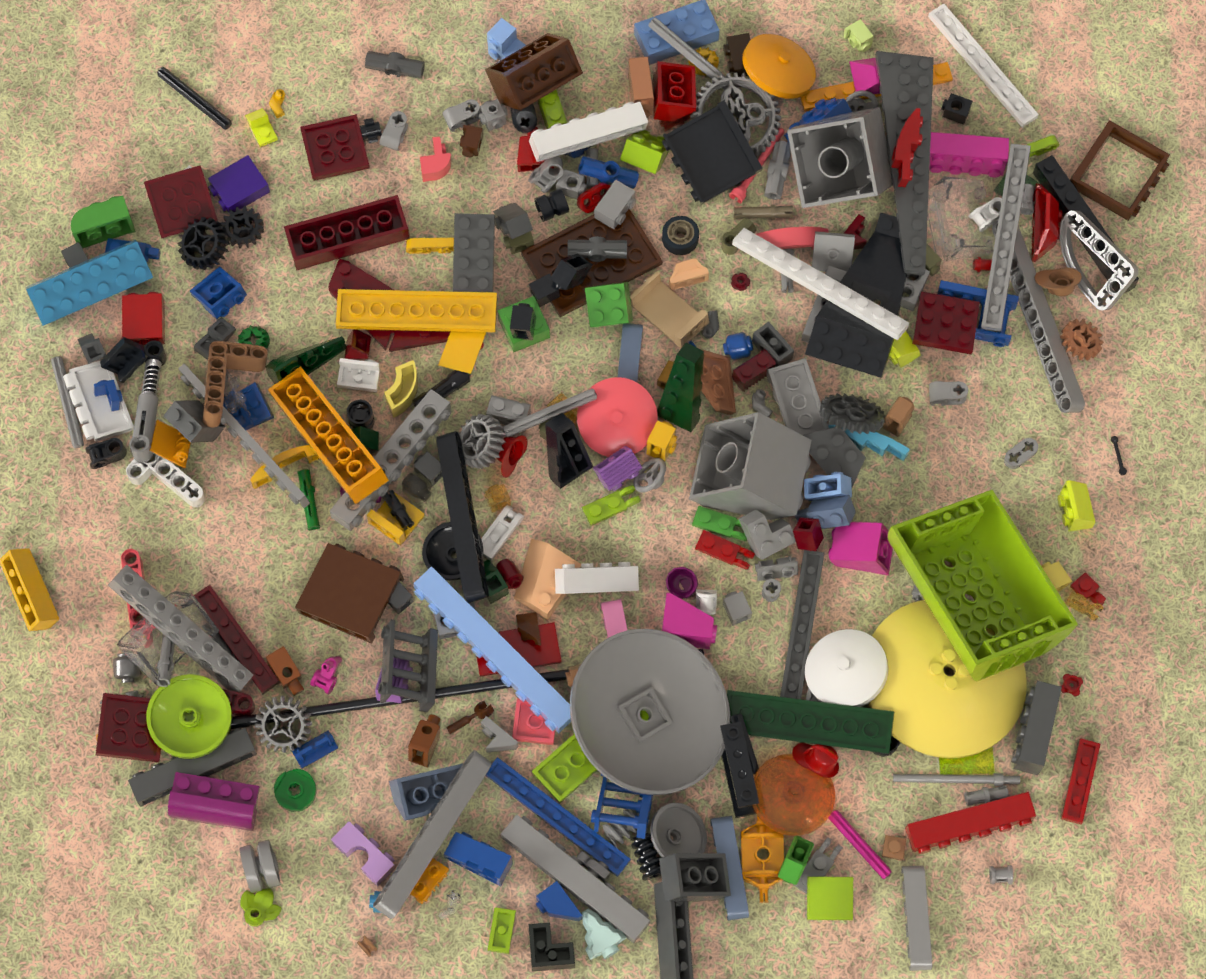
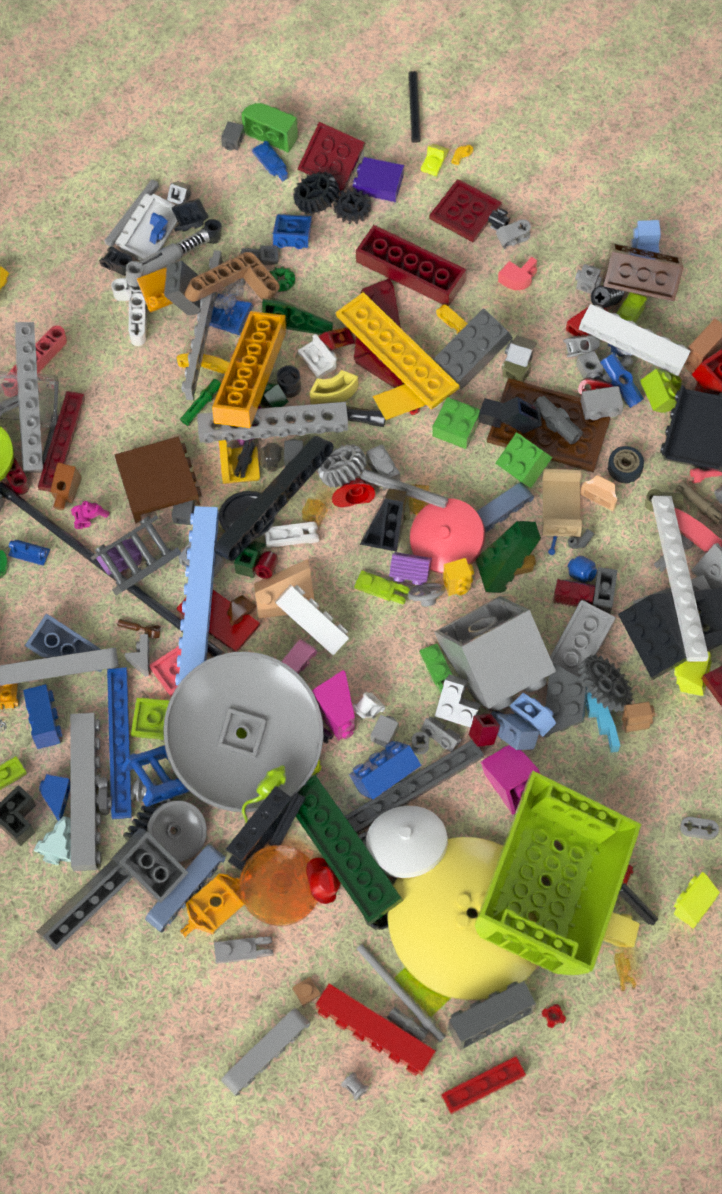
camera: 50 degrees right, 5 degrees down
(89, 282) = (222, 153): dark azure brick -> none
(143, 317) = (230, 204): red brick -> none
(268, 735) = (25, 530): light grey gear -> none
(394, 64) = (562, 194): dark grey piece -> none
(424, 740) = (94, 611): dark orange torso -> none
(461, 115) = (568, 261): light grey piece -> none
(471, 140) = (556, 283): reddish brown brick -> none
(523, 321) = (449, 413): black brick -> none
(551, 205) = (561, 367): black wheel -> none
(686, 578) = (367, 672): magenta hair -> none
(710, 733) = (273, 778): none -> lime animal
(718, 382) = (539, 573): nougat plate -> none
(723, 549) = (420, 686): red hinge -> none
(740, 286) = (628, 531): dark red plate -> none
(758, 403) = (554, 619): light grey arm -> none
(773, 634) = (384, 769): none -> blue brick
(795, 860) = (228, 926): bright green brick -> none
(829, 898) = (224, 976): lime slope -> none
(860, 844) = (286, 965): dark pink axle -> none
(945, 393) = (690, 736): light grey piece -> none
(1046, 549) = (637, 904): none -> black axle
(1088, 588) = (640, 963): red plate -> none

